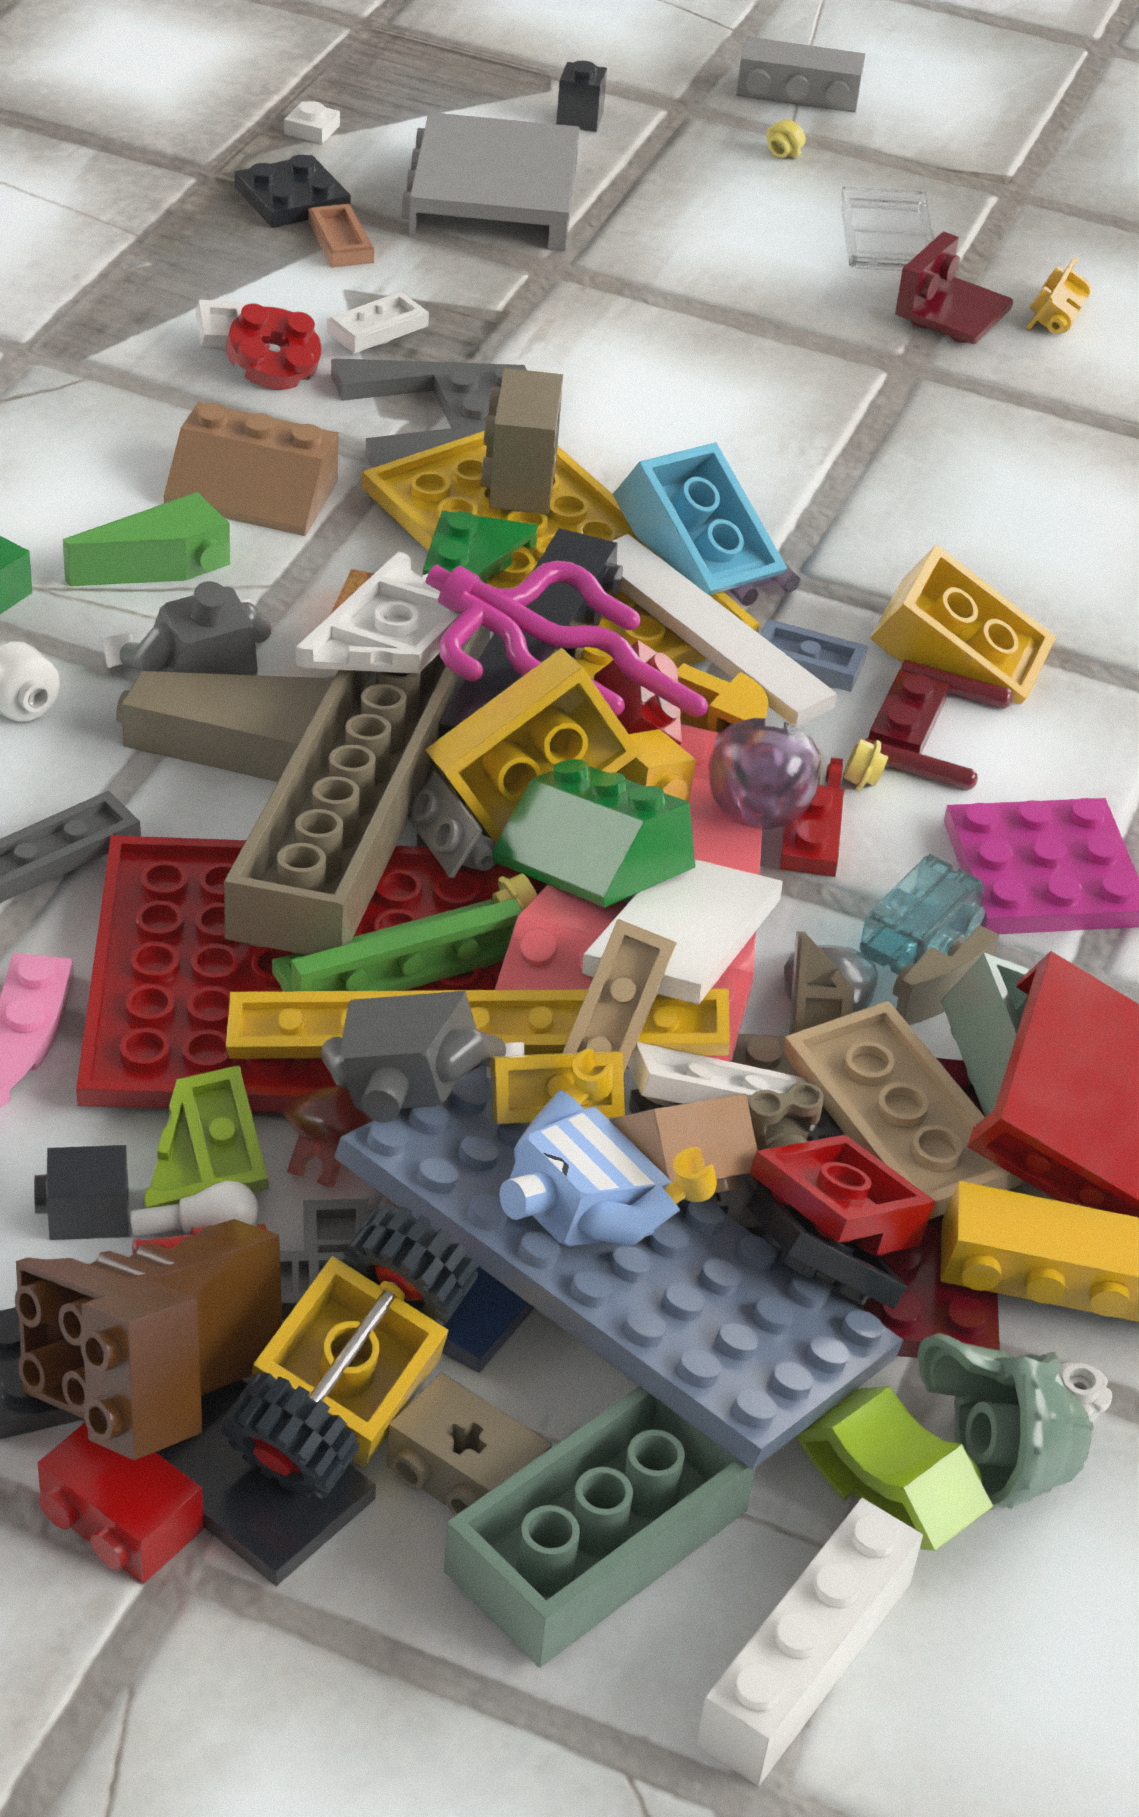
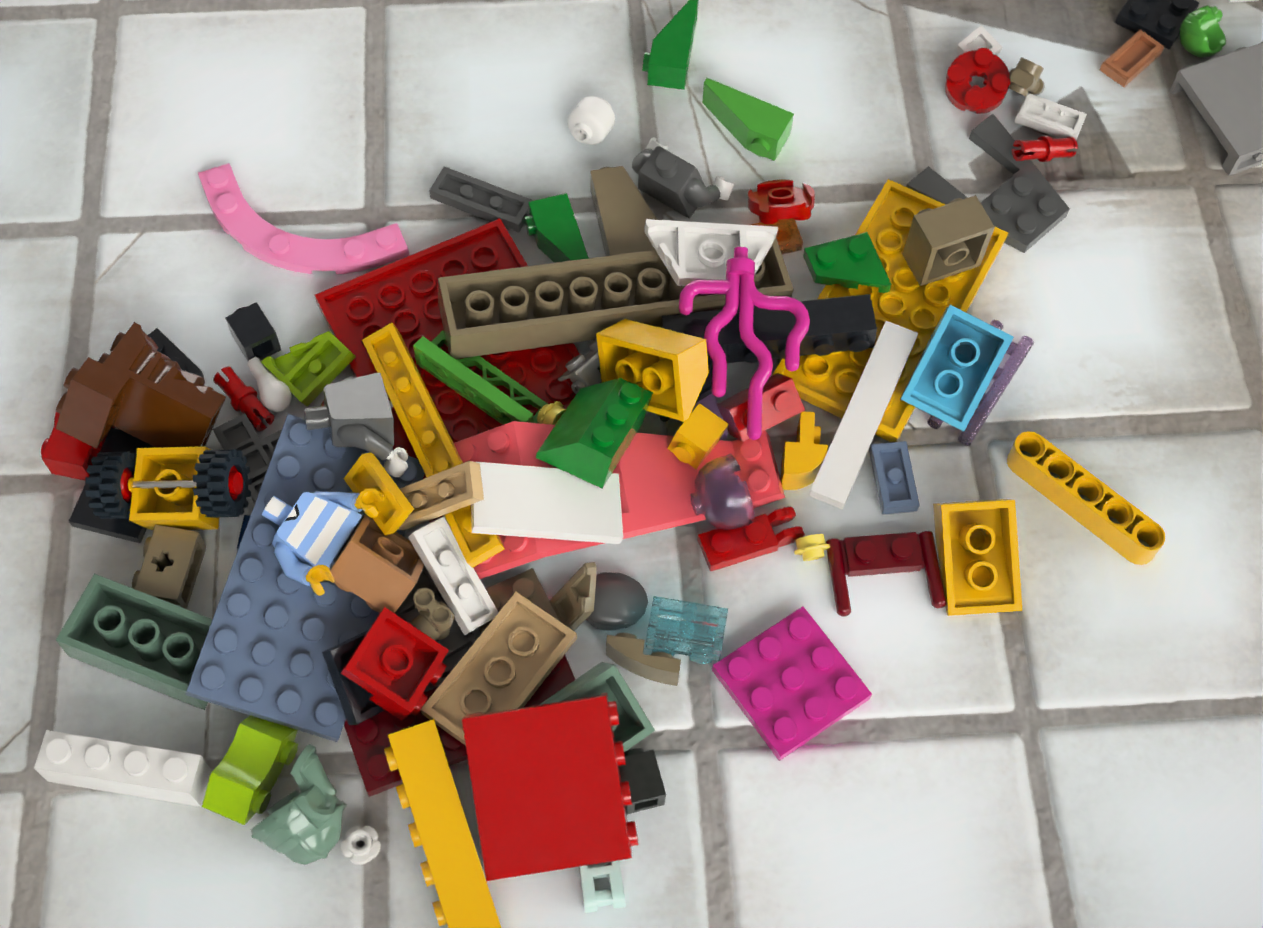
camera: 65 degrees right, 20 degrees up
(195, 790) = (555, 229): none -> green slope
(254, 467) = (850, 129): medium nougat slope -> none
(315, 297) = (1026, 78): none -> dark tan plate
(322, 569) = (781, 201): none -> red plate
(358, 170) = (1202, 33): none -> bright green hair
(424, 341) = (1044, 148): none -> red pin
(952, 517) = (1093, 513): none -> yellow beam

